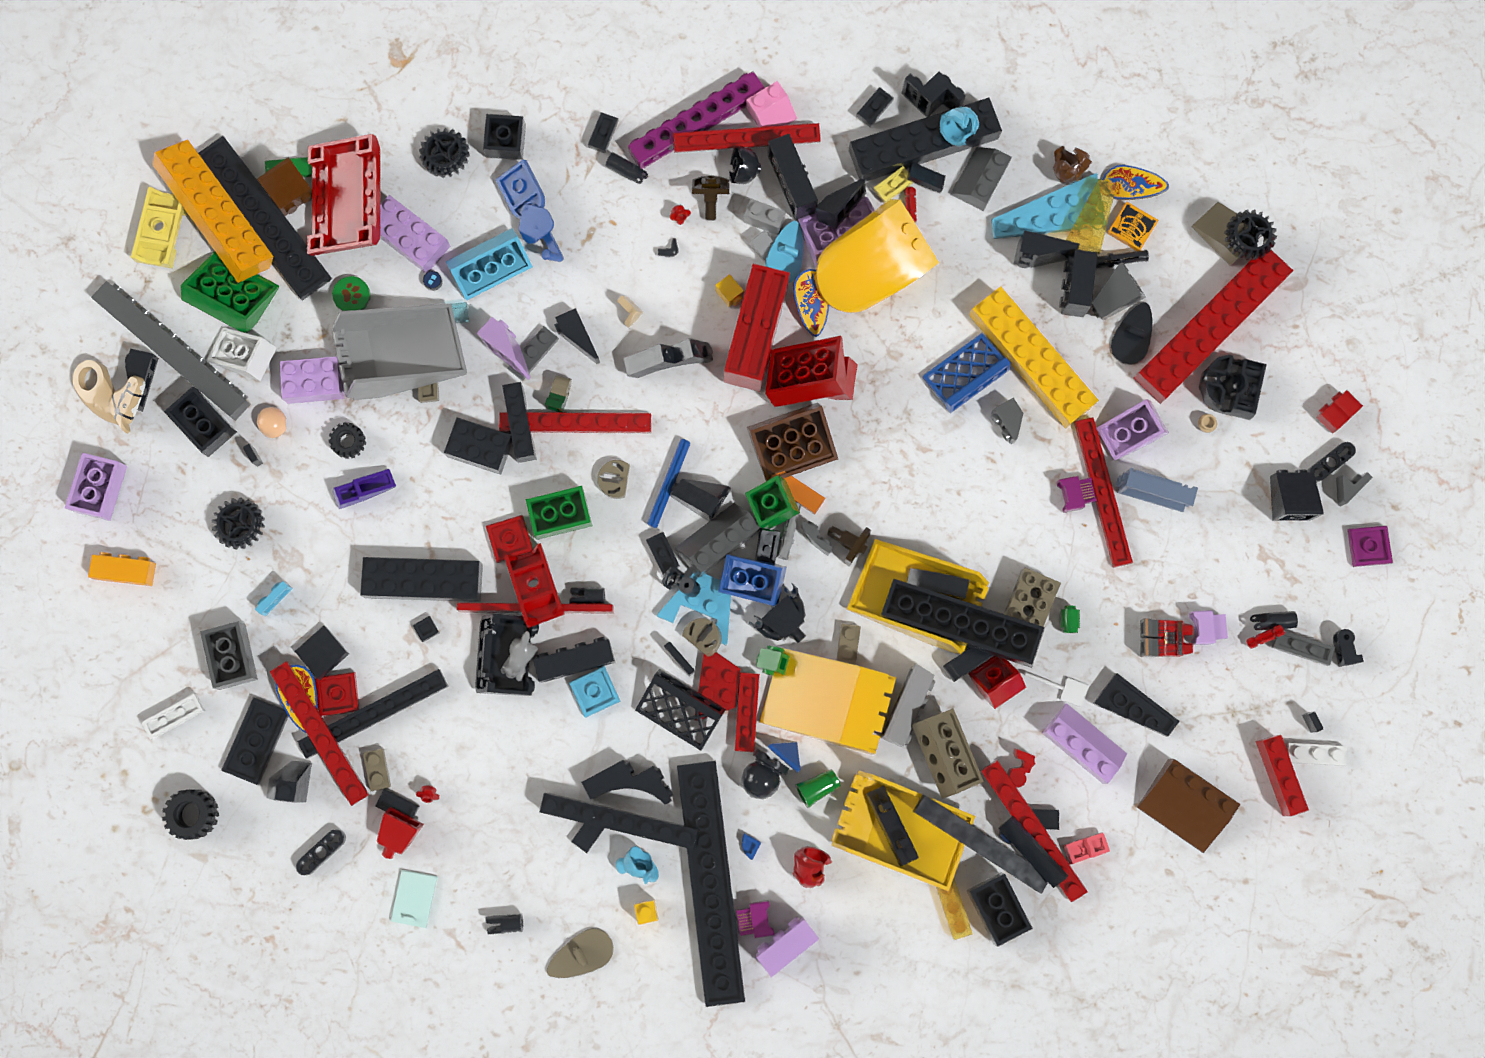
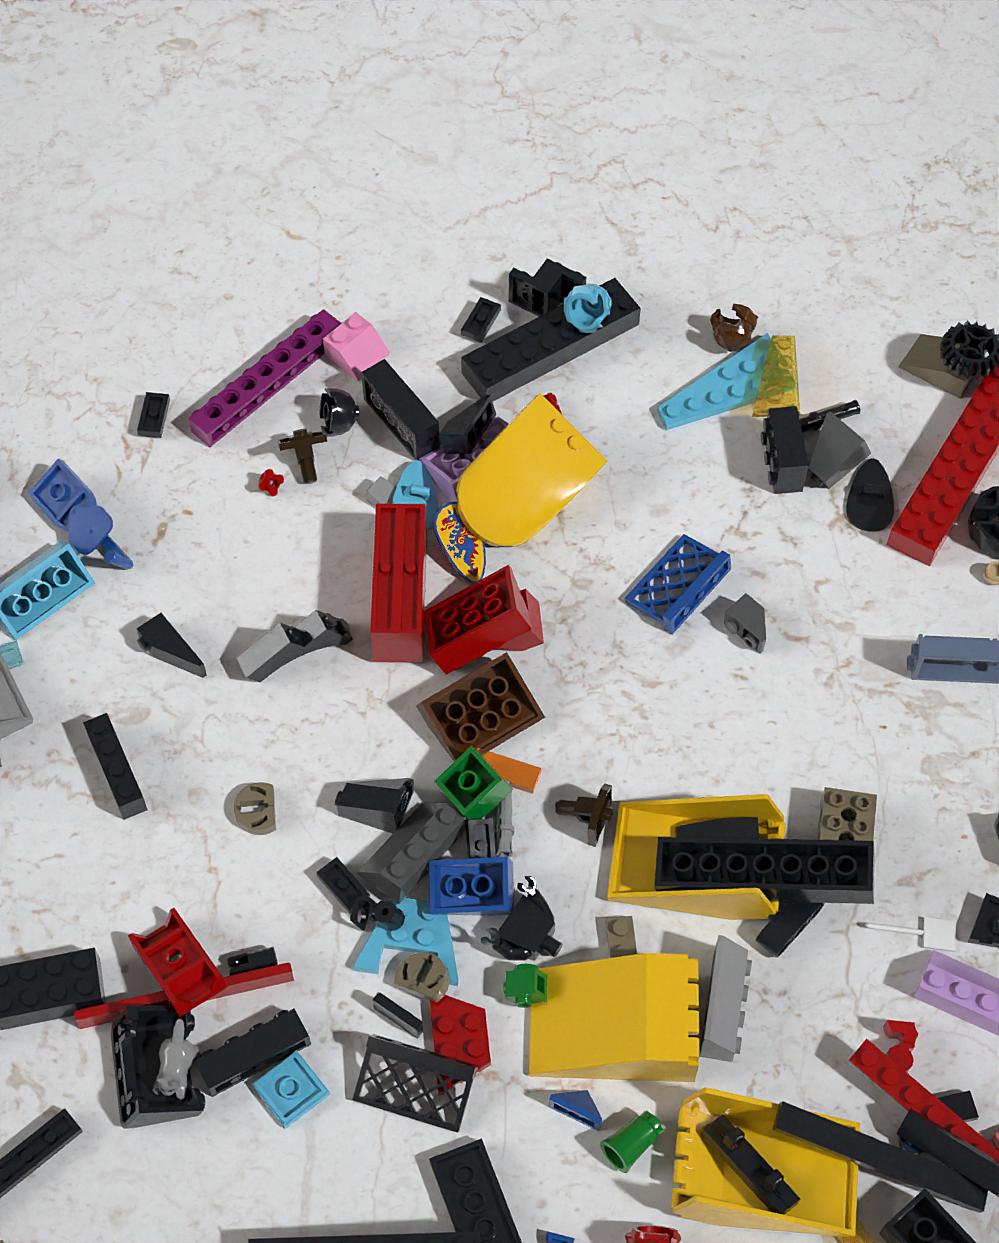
camera: 10 degrees left, 20 degrees down
(426, 629) = (36, 1061): black tile -> none
(478, 446) = (65, 807): black brick -> none
(503, 344) = (73, 675): lavender slope -> none
(504, 136) = (29, 442): black brick -> none
(509, 538) = (130, 913): red tile -> none
(536, 350) = (116, 682): dark grey plate -> none
(559, 394) = (160, 722): leg -> none
(559, 512) = (191, 863): green brick -> none
(583, 422) = (199, 750): red plate -> none
(620, 777) = (352, 1196): black arch -> none
(625, 168) = (190, 446): black piece -> none
(633, 310) = (238, 604): tan tile -> none
(669, 252) = (268, 528): black animal -> none
(669, 481) = (331, 789): blue axle -> none
(729, 291) = (354, 553): yellow brick -> none
(744, 137) = (313, 385): red tile -> none
(747, 712) = (508, 1065): red plate -> none
(762, 776) = (552, 1140): black tile -> none
(764, 217) = (374, 460): light grey brick -> none
(812, 532) = (534, 814): dark grey slope -> none
(893, 185) = (526, 393): light yellow plate -> none
(926, 177) = (564, 379): black tile -> none
(947, 753) = (780, 1032): dark tan brick -> none
(981, 176) = (631, 365): dark grey slope -> none
(997, 680) = (834, 940): red slope -> none
(1033, 357) = (757, 545): yellow brick -> none
(1041, 250) = (729, 423): black slope -> none
(1069, 619) = (903, 842): green brick -> none
(1076, 493) = (860, 688): magenta piece -> none
(1104, 493) = (895, 683): red tile -> none
(1132, 226) = (829, 380): tile -> none
(1132, 429) = (906, 599): lavender slope -> none
(1135, 182) = (818, 331): shield -> none

